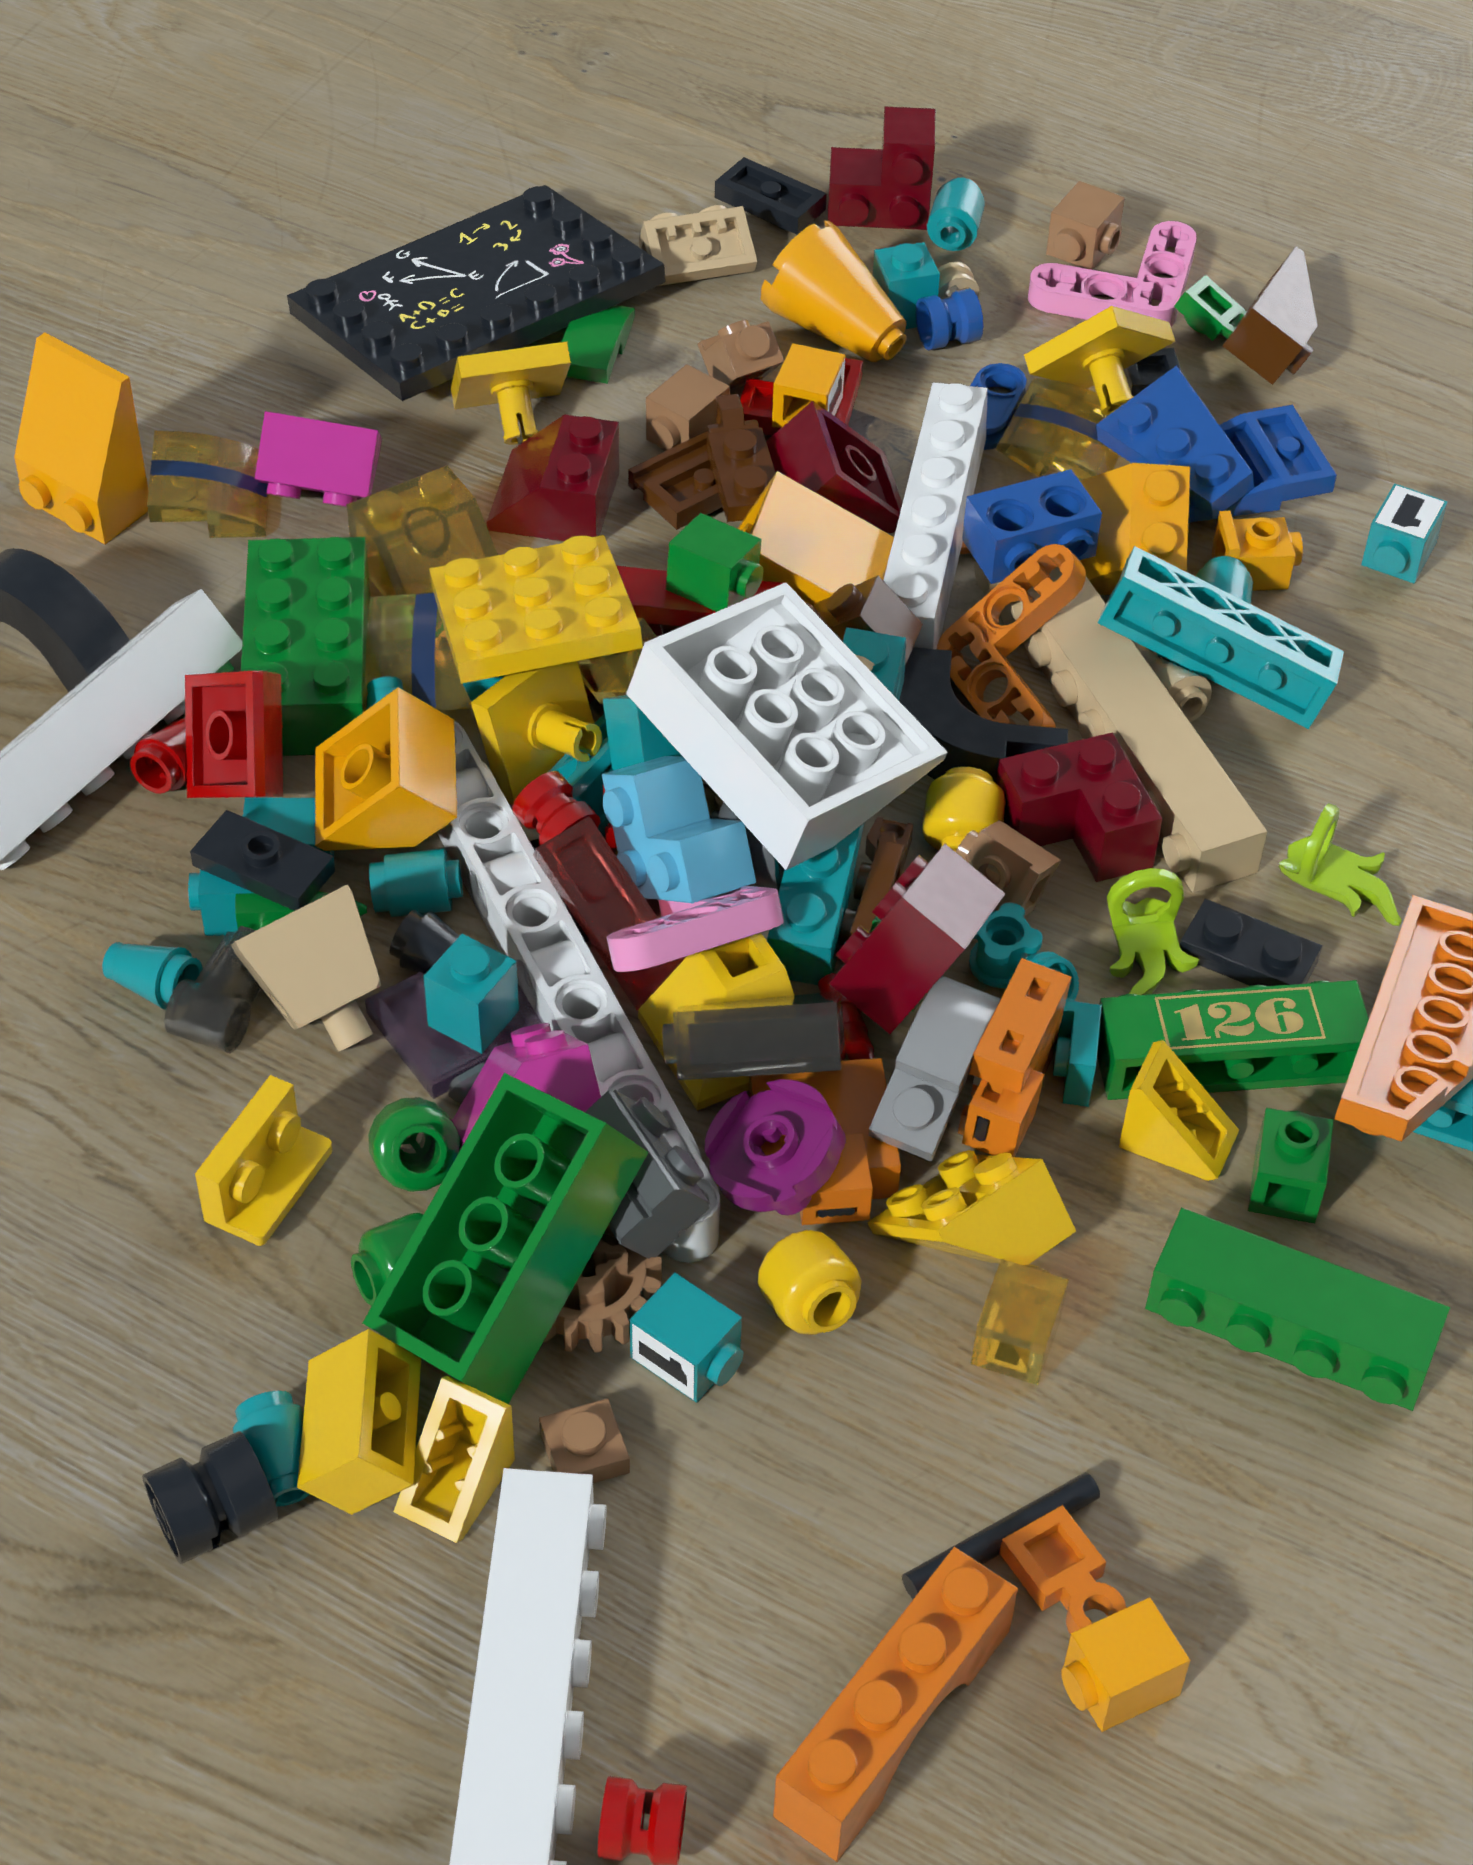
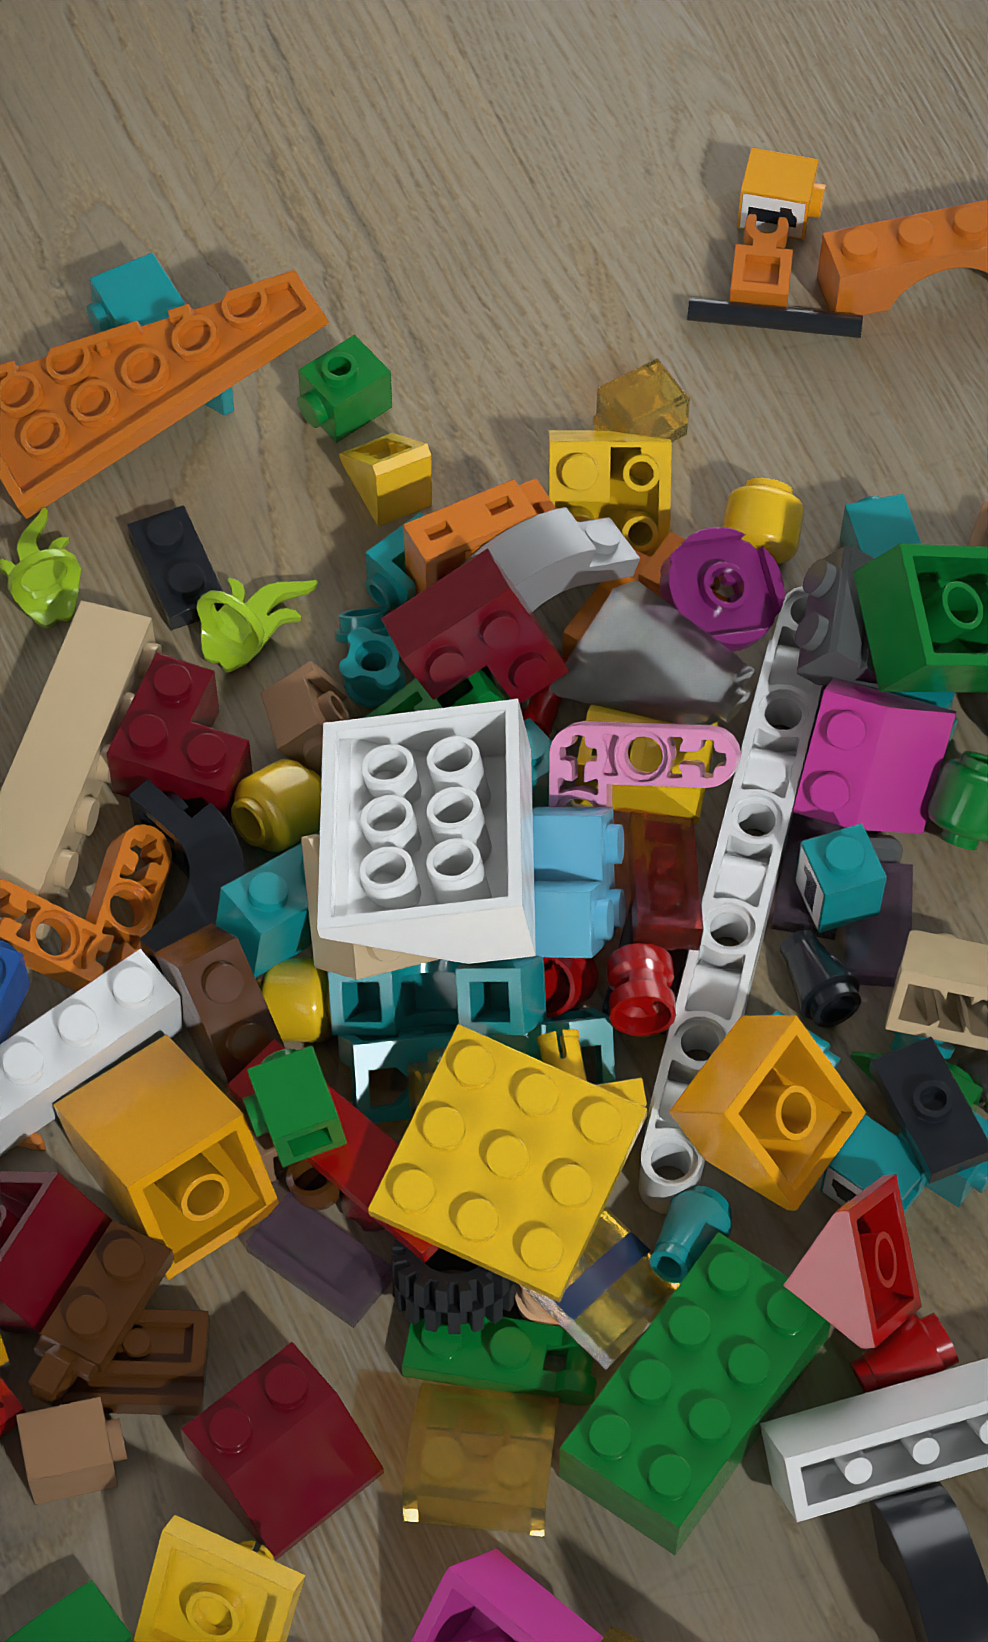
camera: 140 degrees left, 10 degrees up
(1237, 1035) = (277, 493): green brick -> none
(1296, 1309) = (452, 305): green brick -> none

